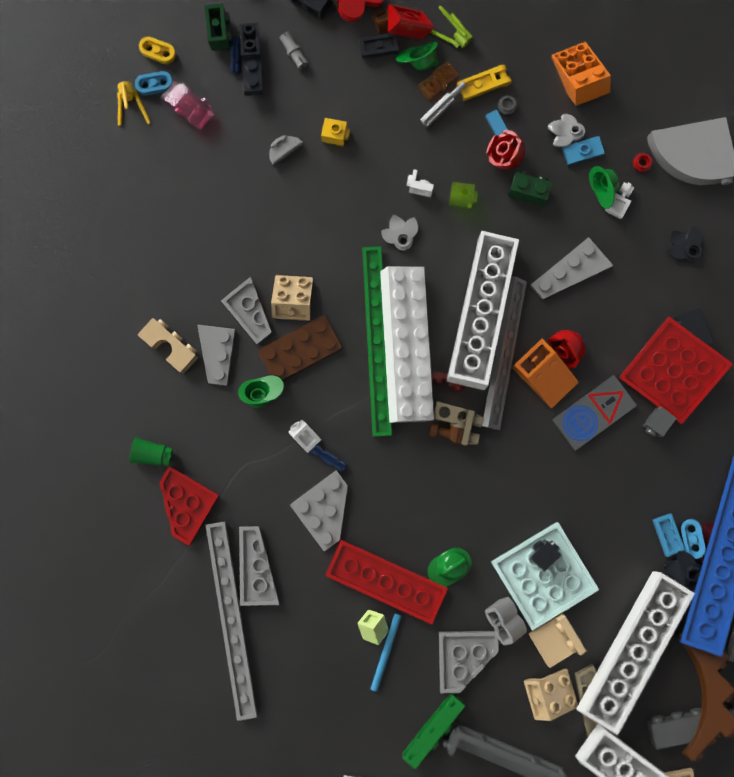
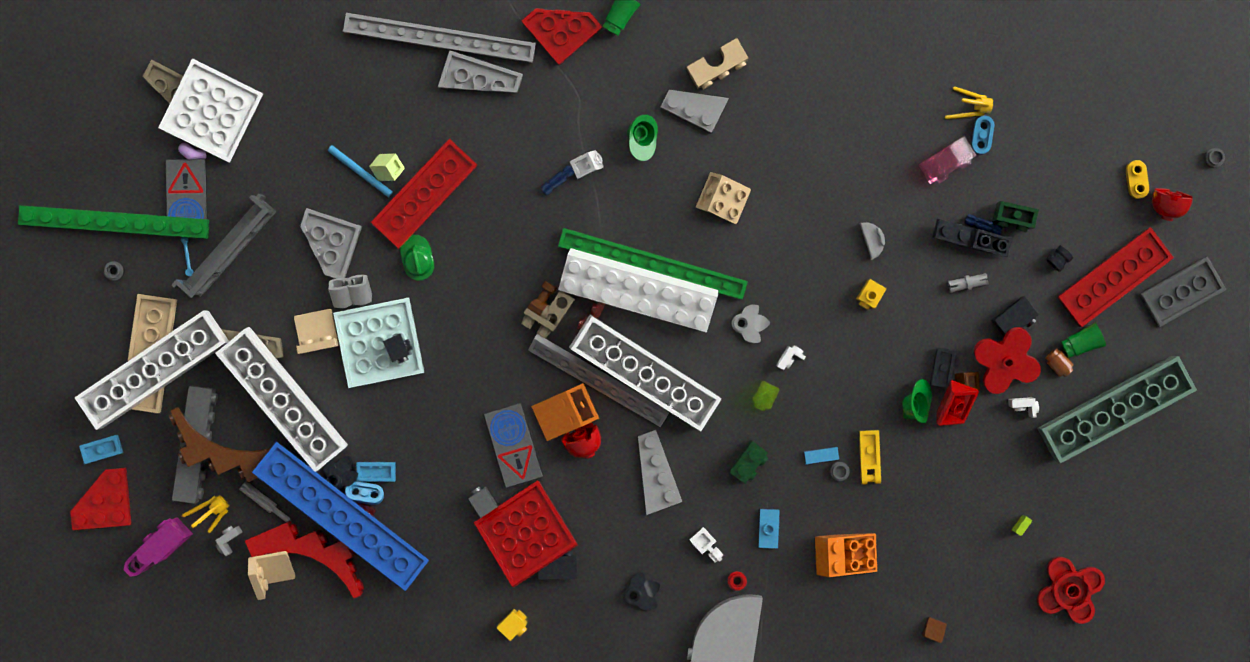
camera: 105 degrees right, 5 degrees up
(158, 51) = (1014, 149): yellow plate -> none
(248, 311) = (724, 151): light grey wing -> none
(300, 348) = (671, 188): reddish brown plate -> none
(323, 509) = (511, 158): light grey plate -> none
(430, 734) = (279, 197): green piece -> none
(438, 81) = (887, 413): clear orange slope -> none
(441, 106) = (860, 406): light grey axle -> none
(461, 36) = (923, 451): lime plant -> none
(506, 150) = (792, 451): red cylinder -> none
(551, 695) = (268, 309): tan bracket -> none
(564, 130) = (794, 516): light grey plate -> none
(604, 184) = (726, 536): green piece -> none

